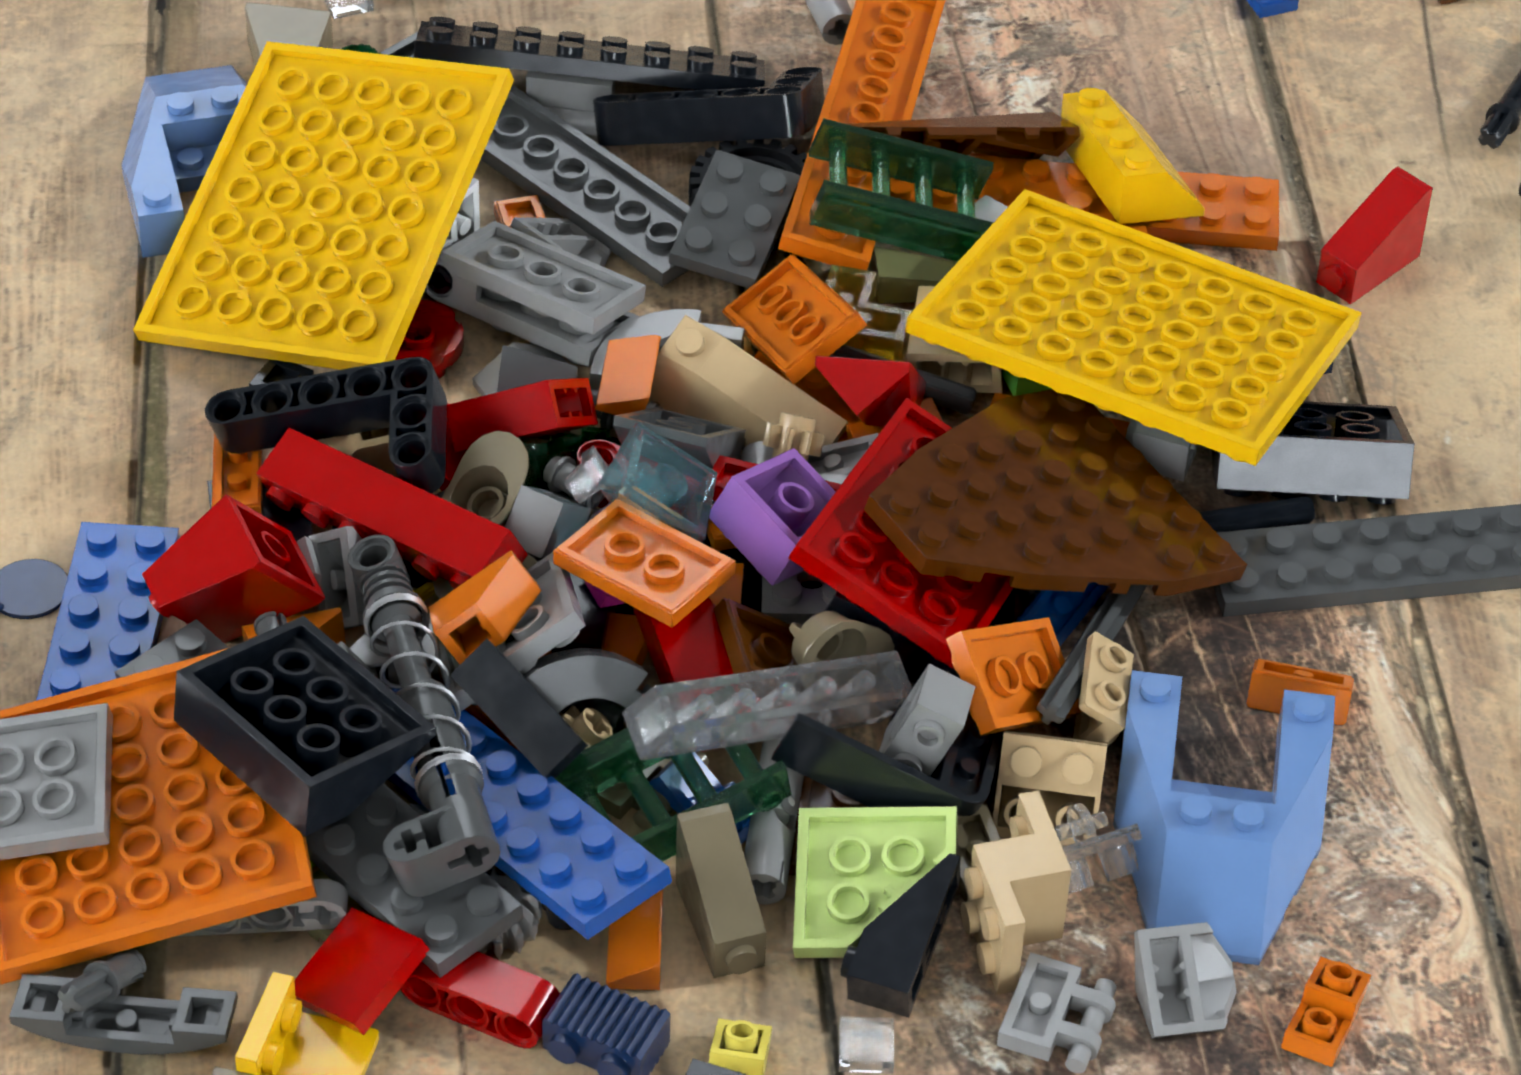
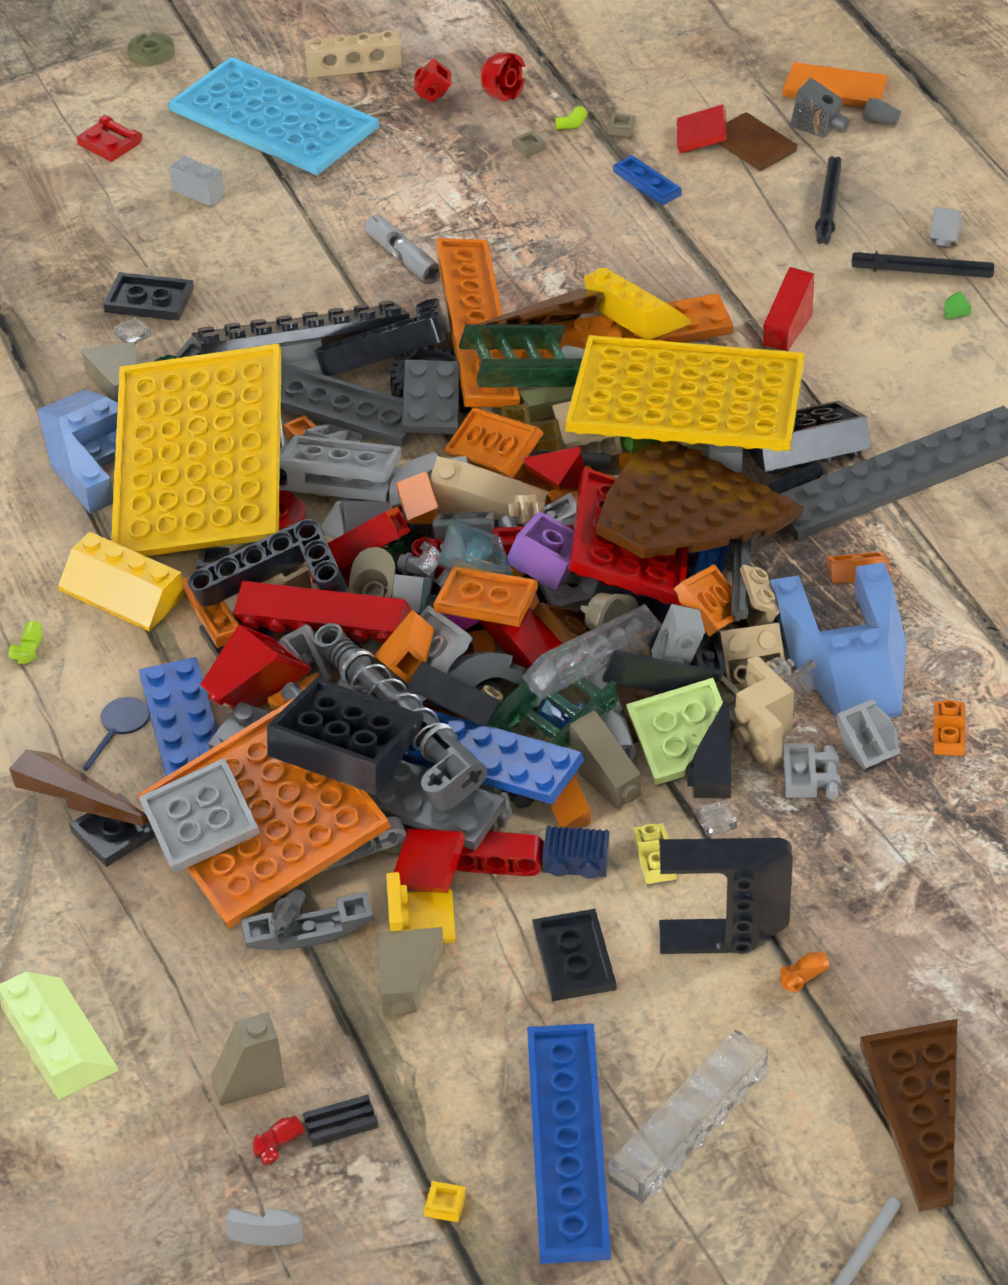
camera: 15 degrees left, 0 degrees up
(124, 376) = (121, 581): none -> yellow slope

